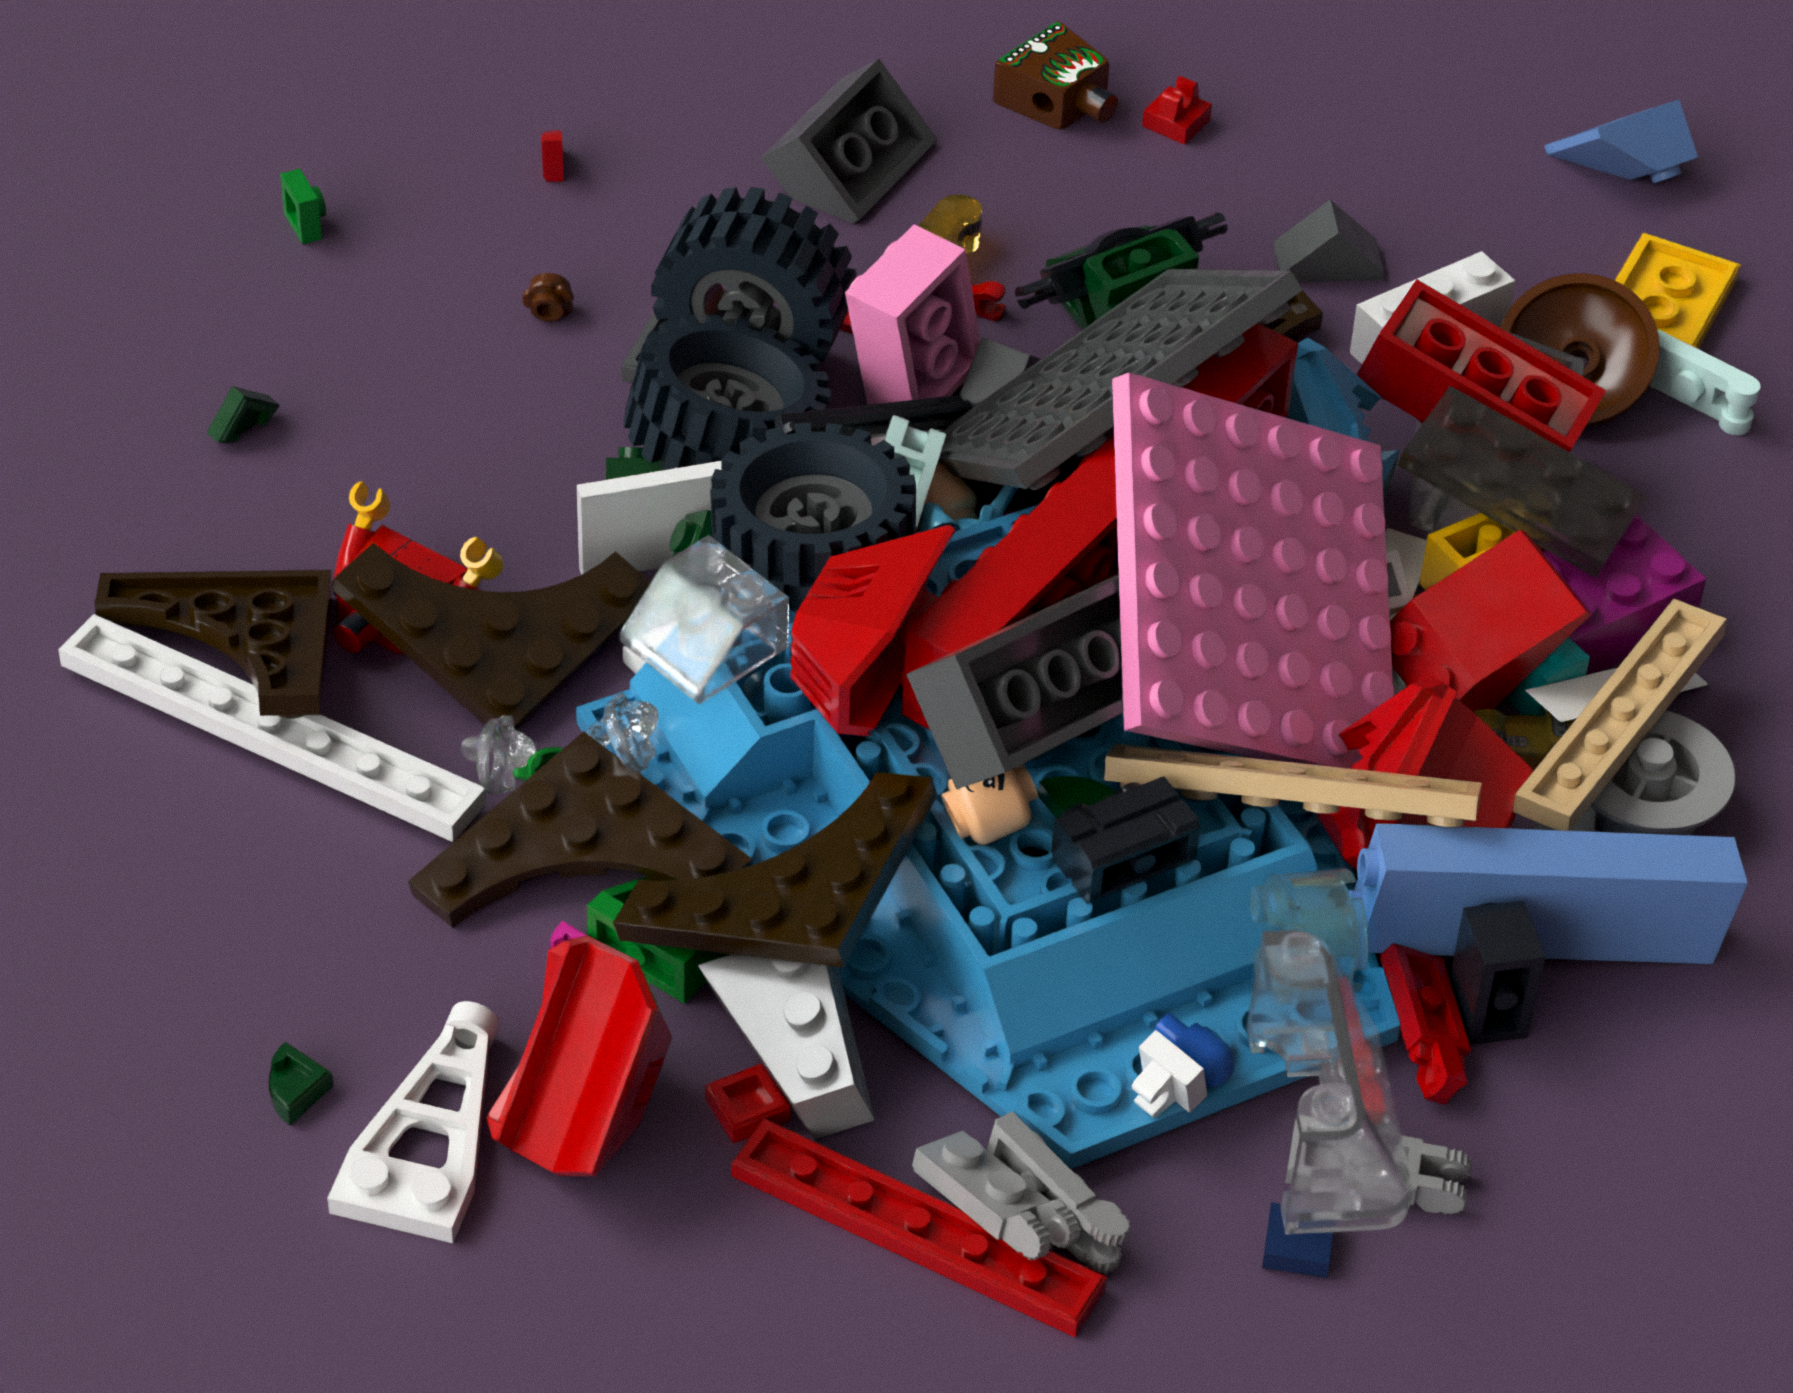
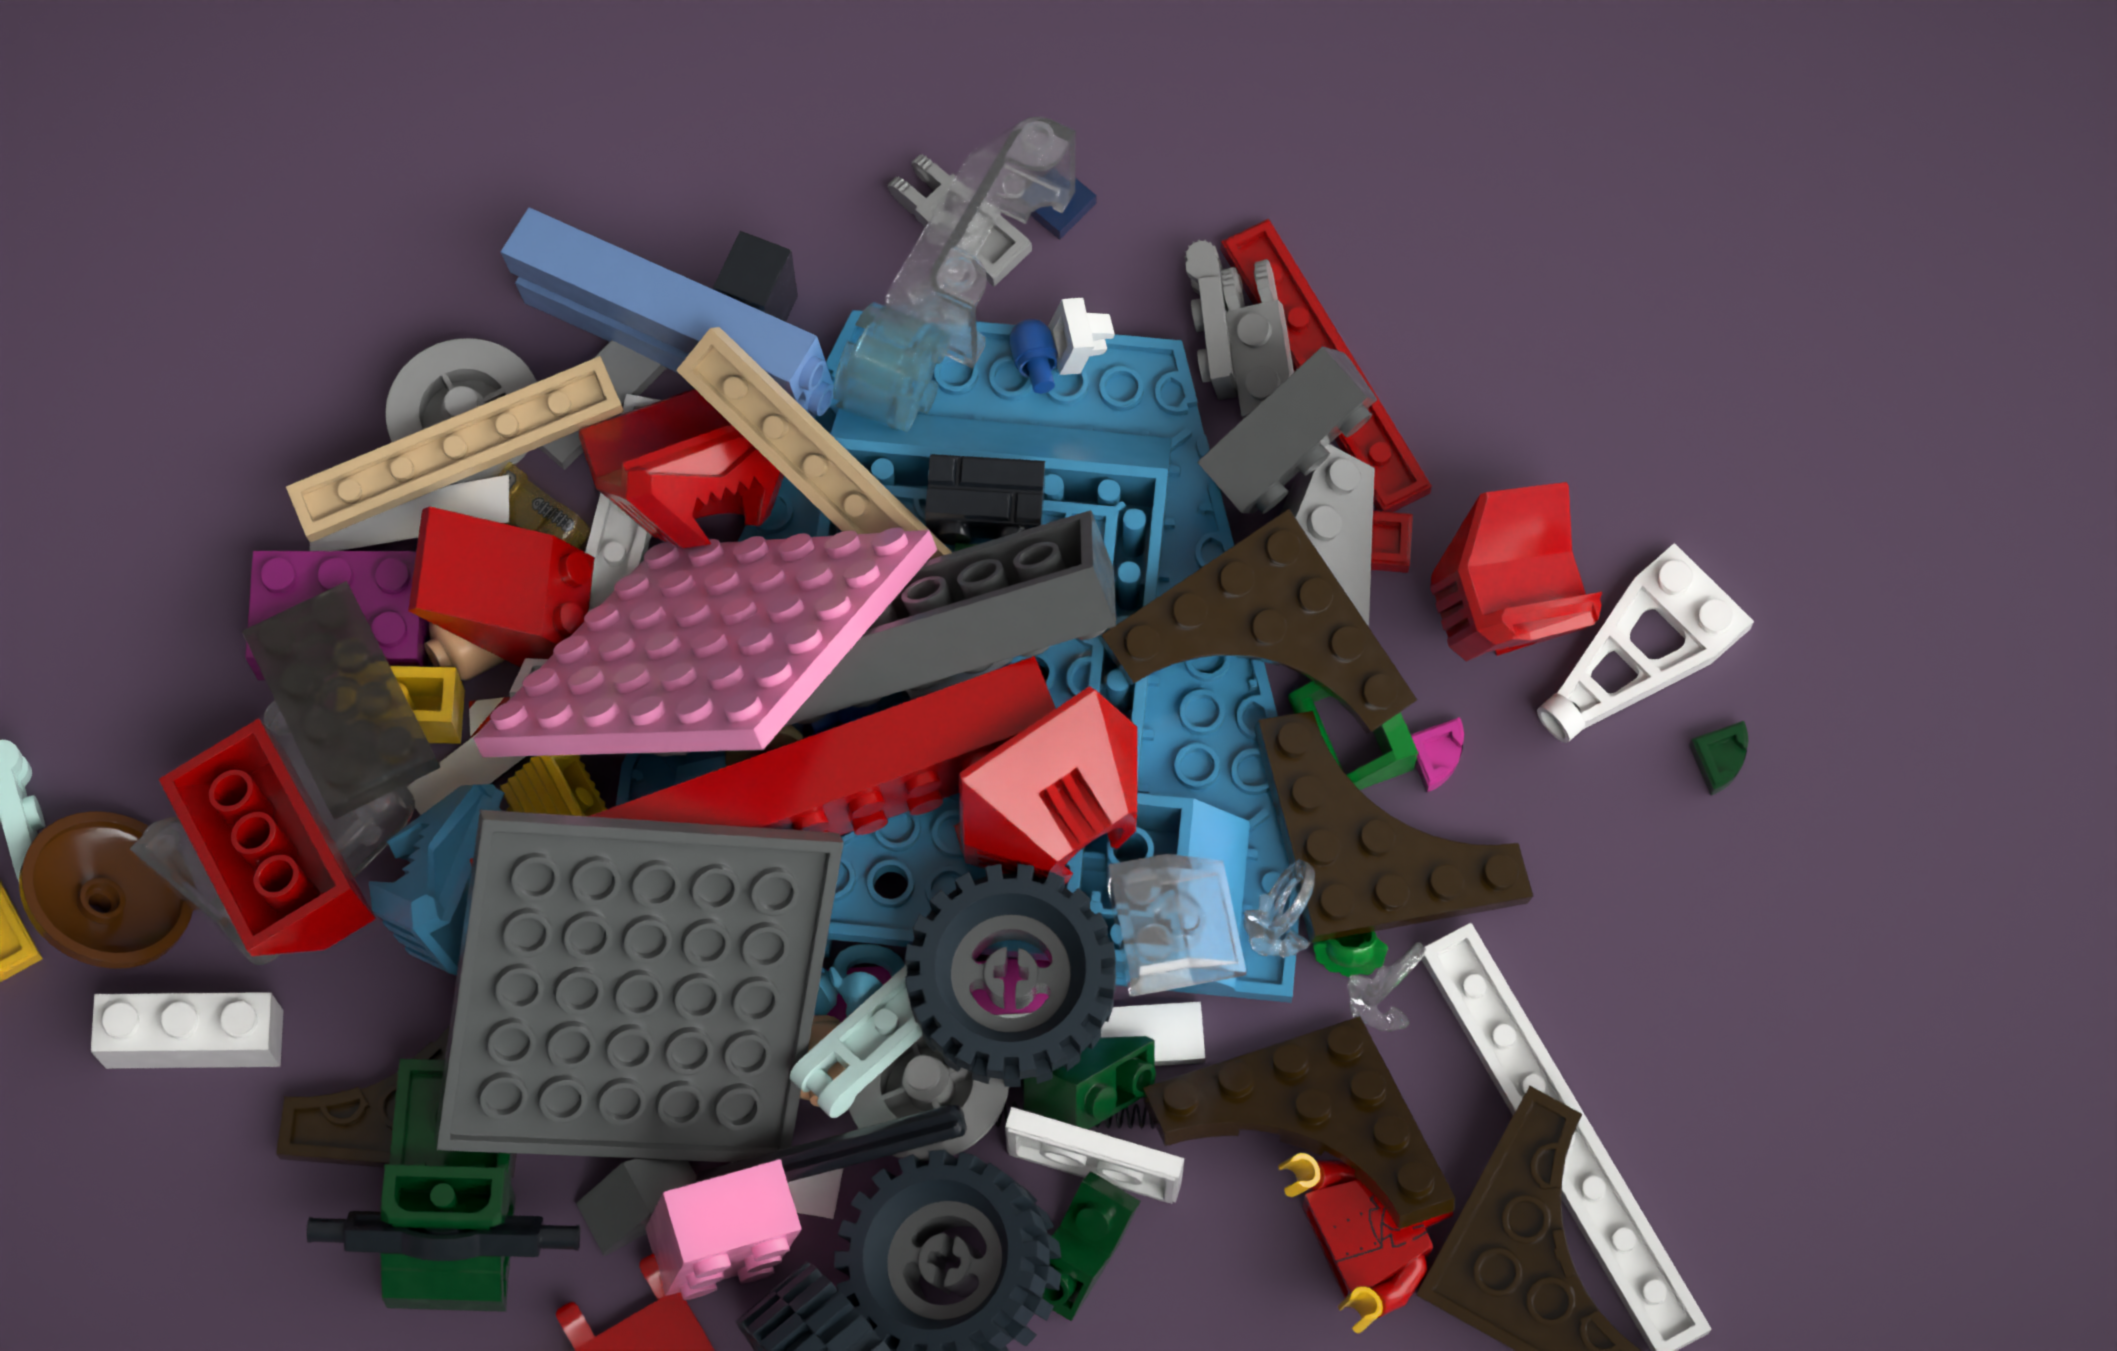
camera: 145 degrees left, 25 degrees up
(894, 1069) = (1290, 431): none -> dark grey slope
(1328, 248) = (200, 1196): dark grey slope -> none
(1428, 1020) = (832, 293): red hinge -> none

